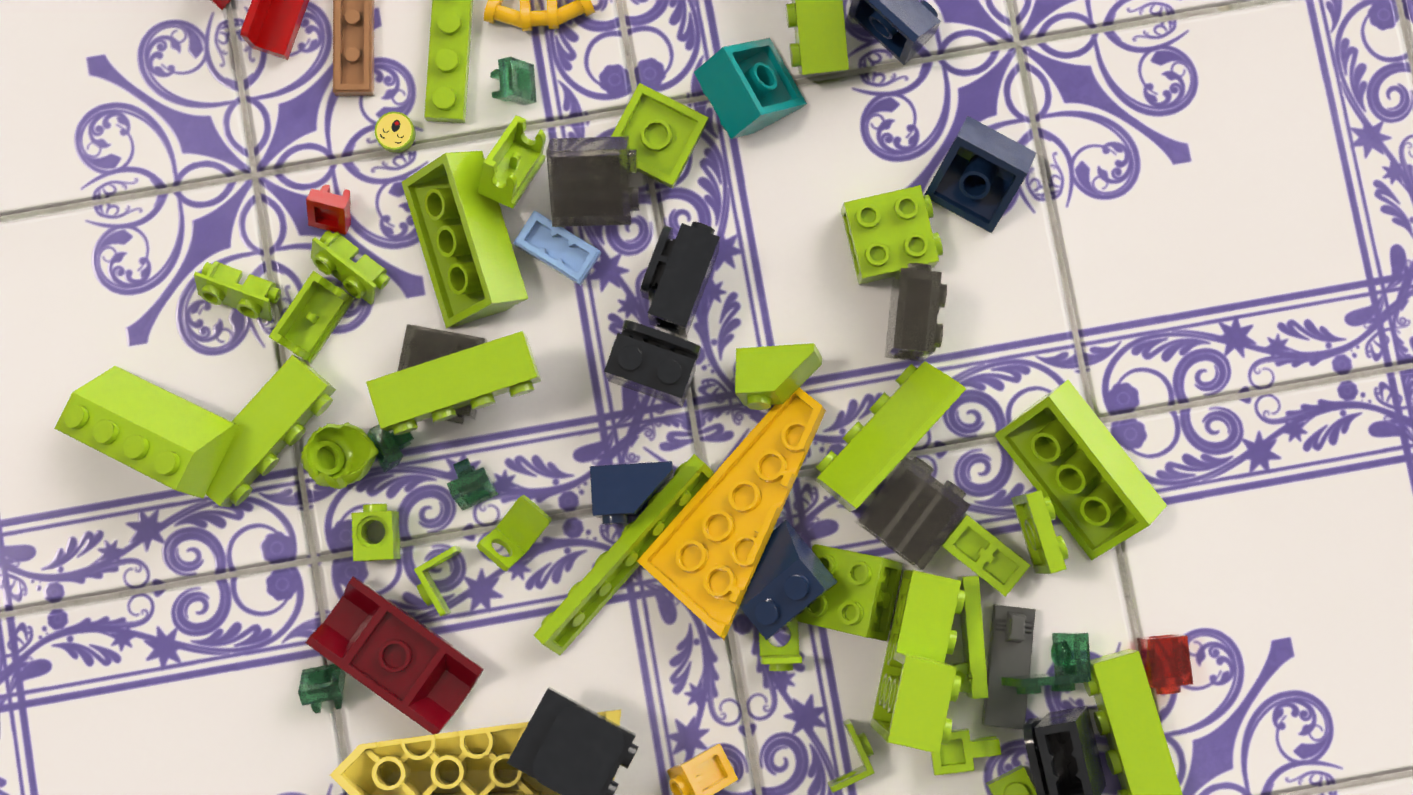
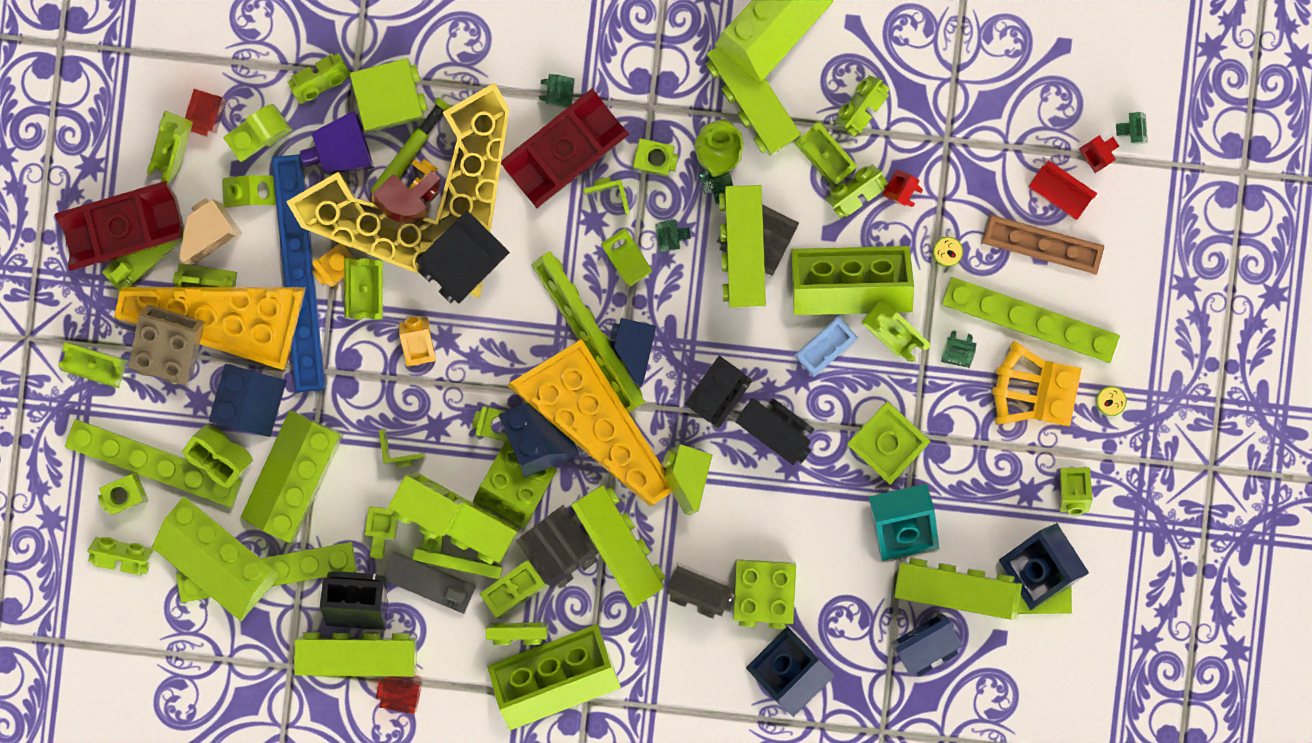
camera: 110 degrees right, 5 degrees up
(592, 181) = (865, 386): clear smoke brick -> none
(1071, 666) = (417, 627): clear green bracket -> none

